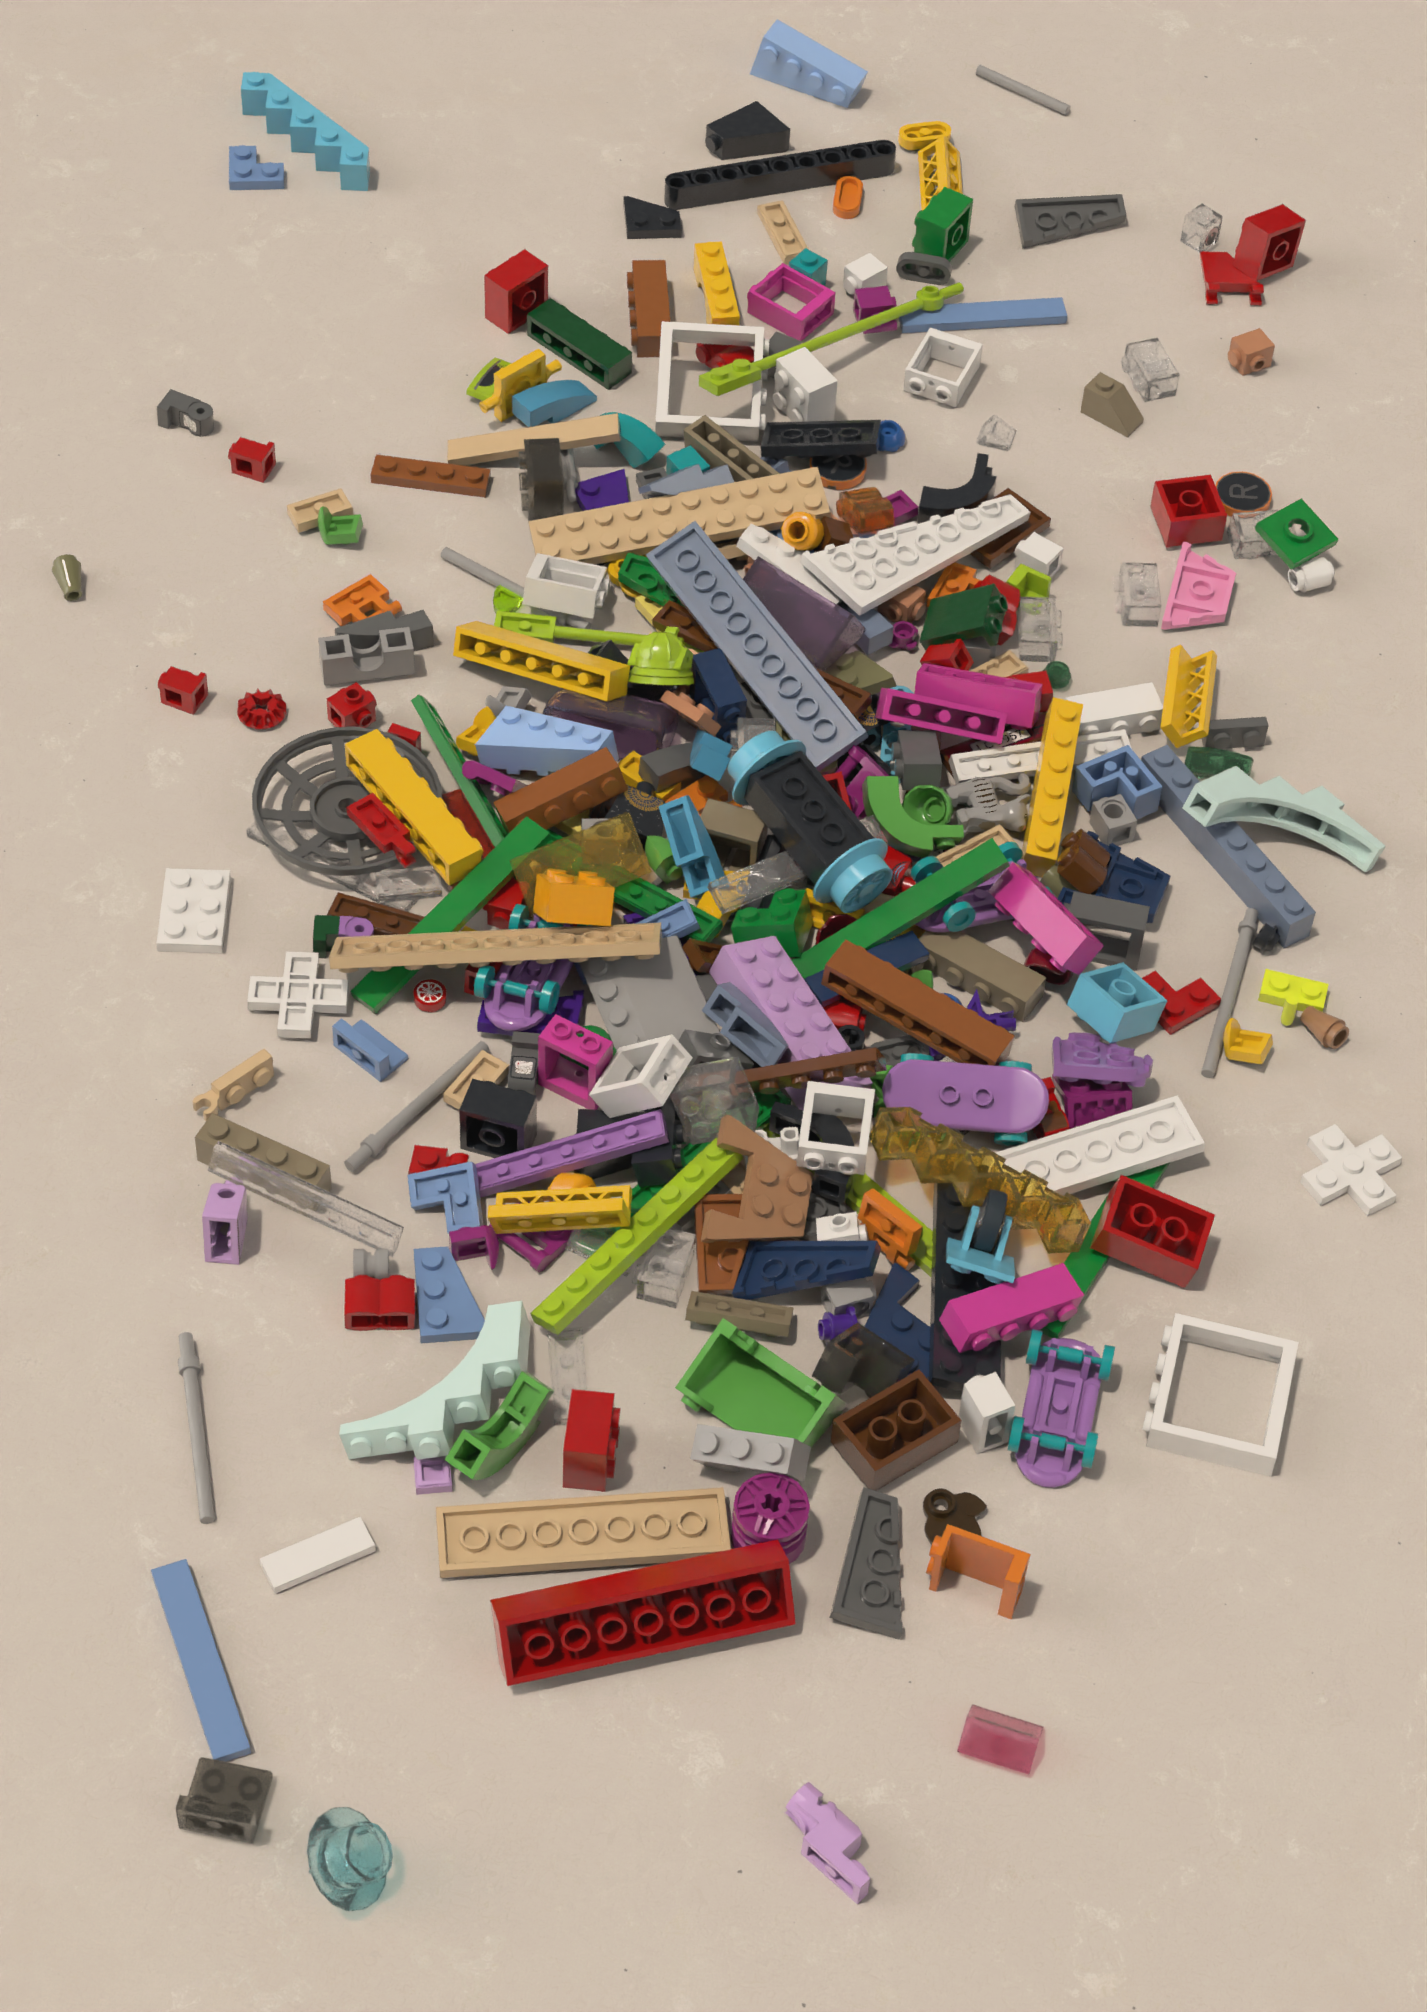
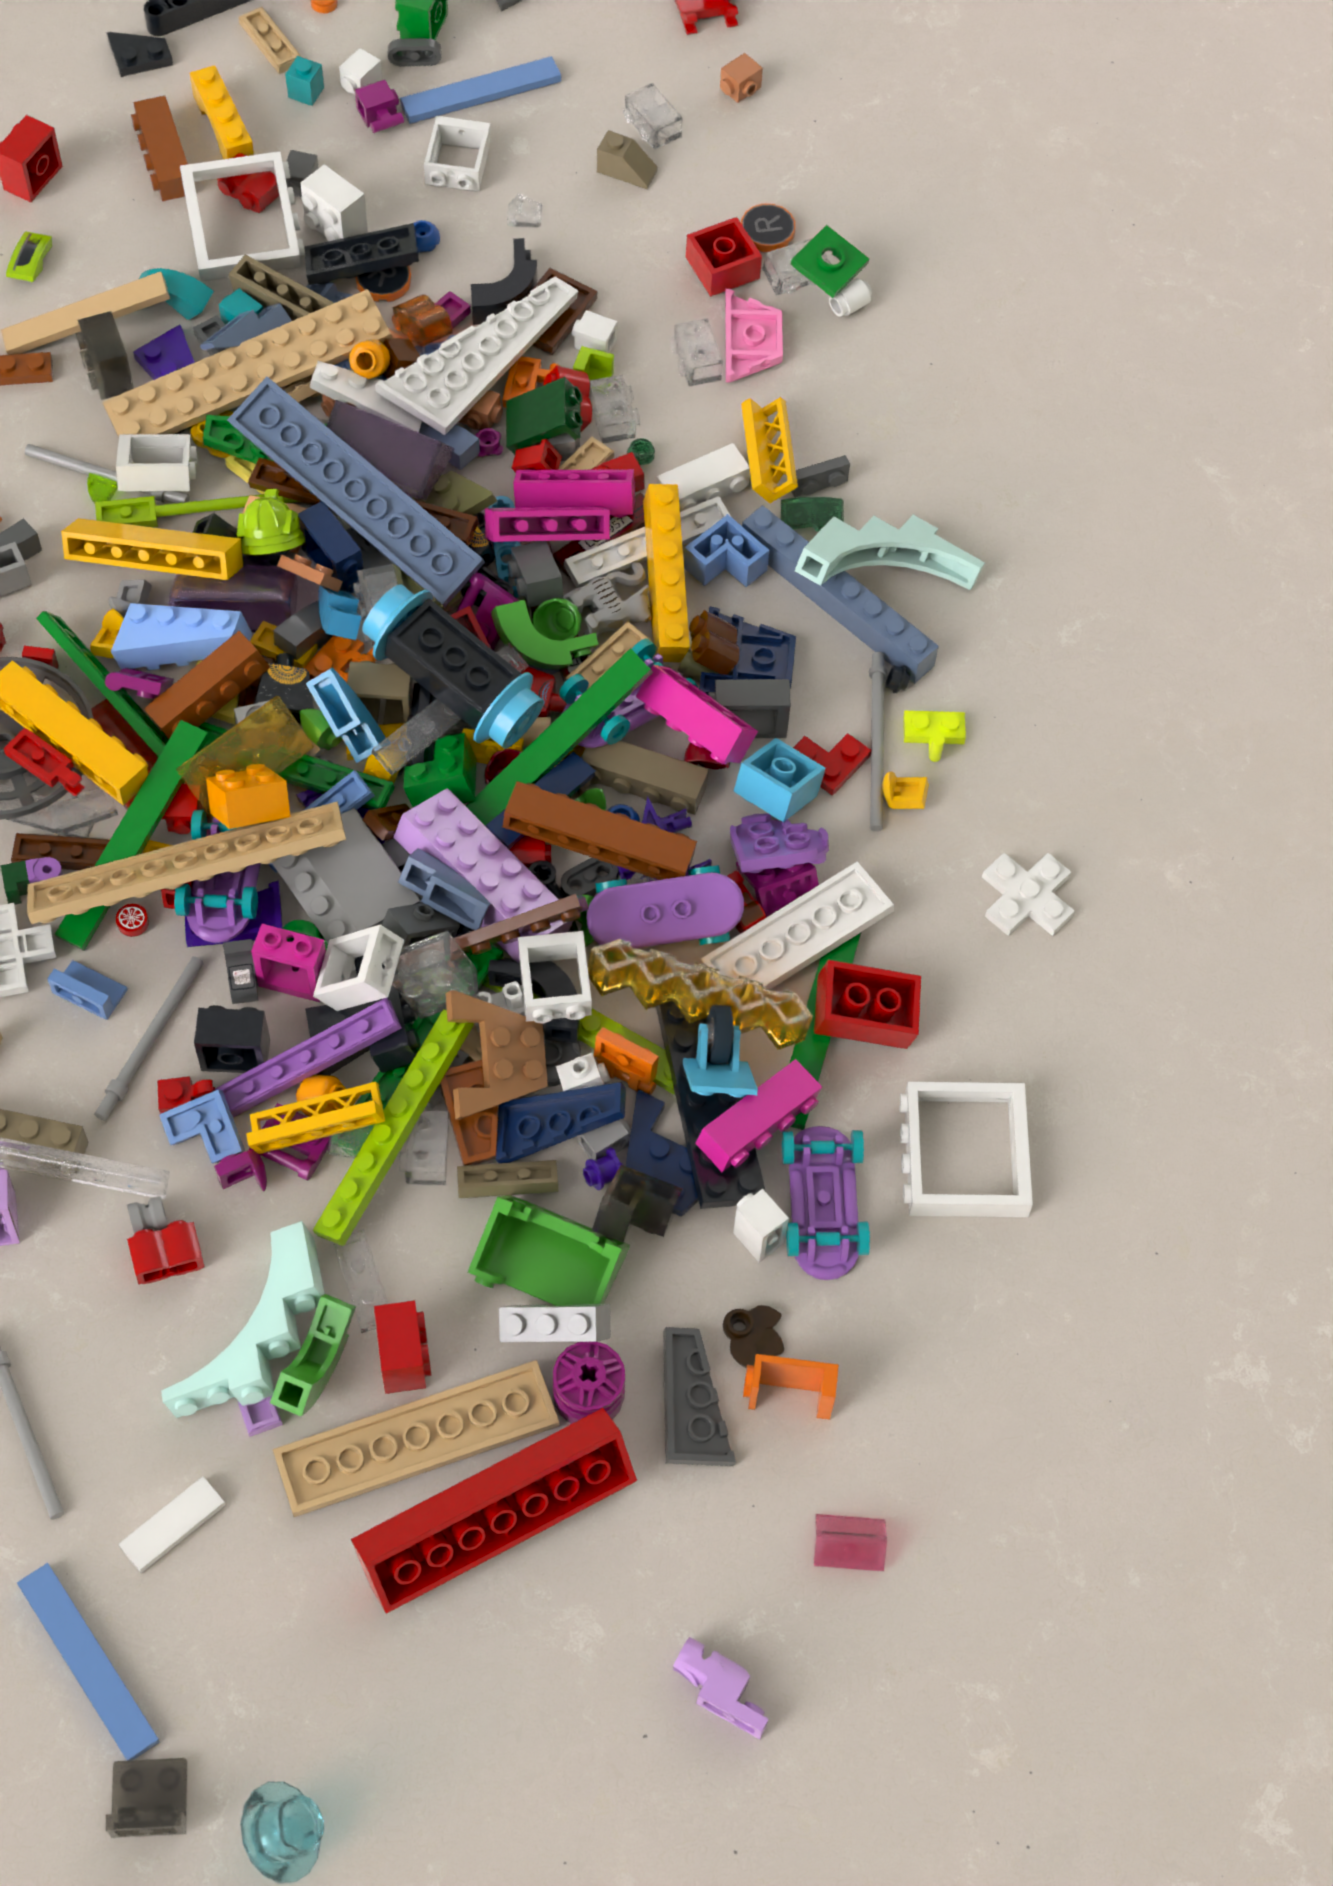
camera: 15 degrees left, 10 degrees up
(444, 1299) = (225, 1230): medium blue wing -> none
(483, 1068) = (203, 991): tan plate -> none
(515, 378) = (57, 258): yellow plate -> none
(551, 401) = (92, 267): dark azure slope -> none
(569, 473) = (129, 342): light grey axle -> none
(579, 343) = (103, 200): dark green brick -> none
(742, 372) = (271, 204): lime bar -> none
(818, 298) = (285, 90): dark pink window -> none
(895, 1431) = (681, 1263): reddish brown brick -> none
(1113, 820) = (729, 601): light grey brick -> none
(1325, 1027) = (974, 758): medium nougat cone -> none

